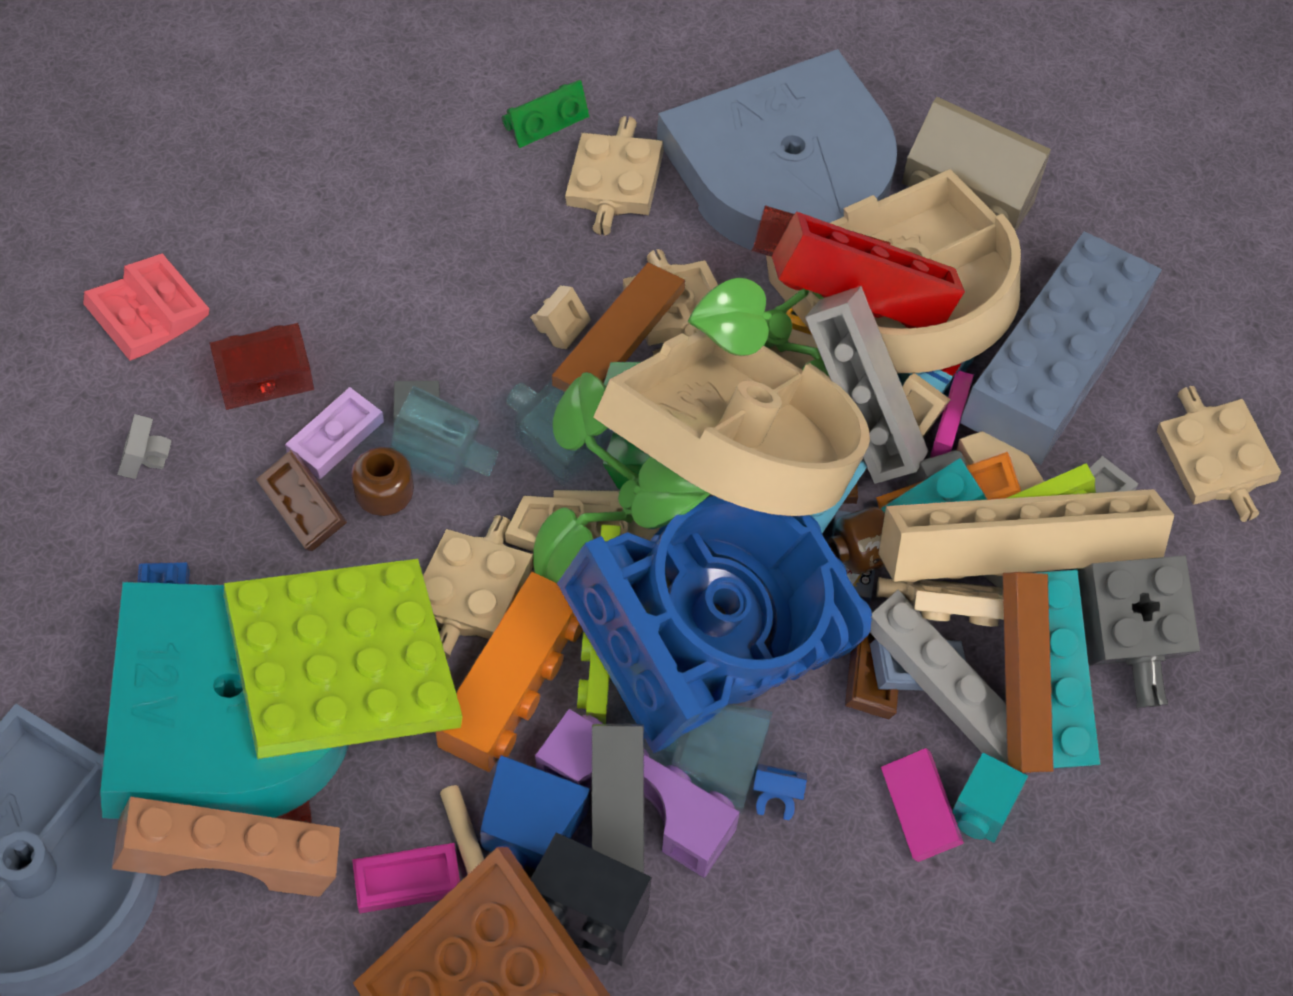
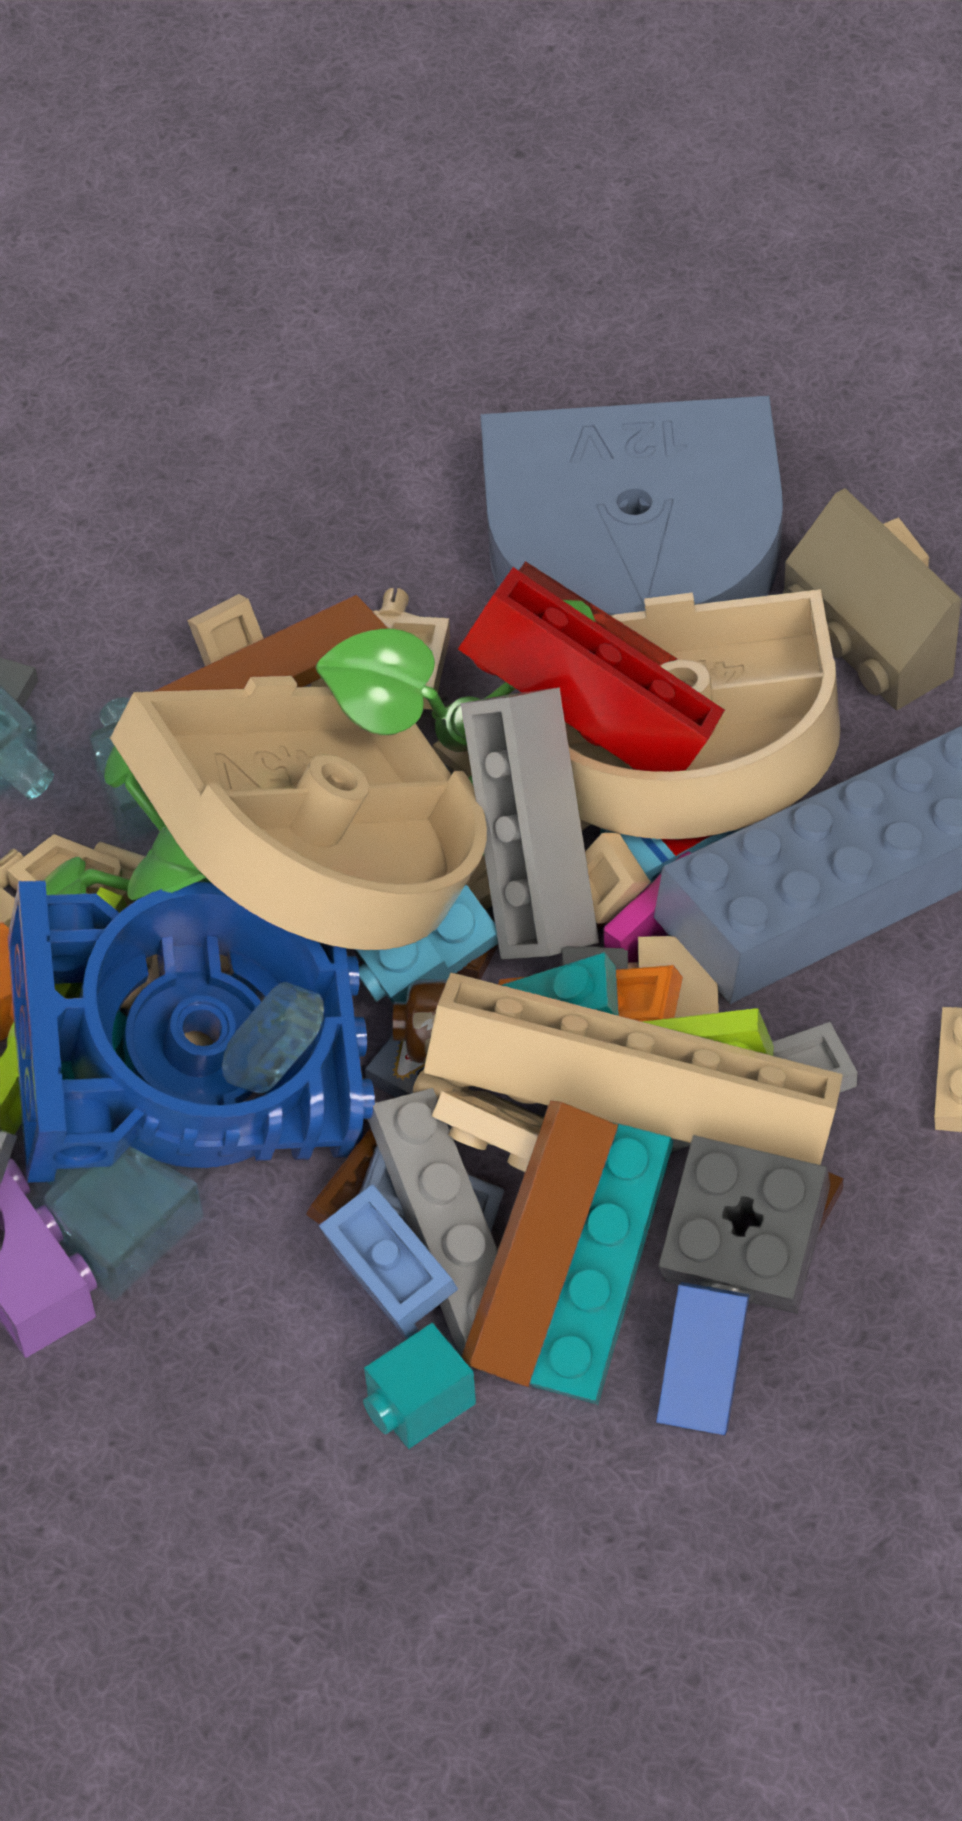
camera: 30 degrees right, 5 degrees down
(547, 114) = (357, 380): green hinge -> none
(614, 174) = (401, 480): tan plate -> none
(780, 784) = (169, 1277): blue tile -> none
(784, 589) = (273, 1037): none -> clear light blue beam
(922, 805) = (332, 1365): dark pink tile -> none
(929, 721) = (388, 1259): none -> medium blue panel
(1159, 710) = (703, 1358): none -> tile

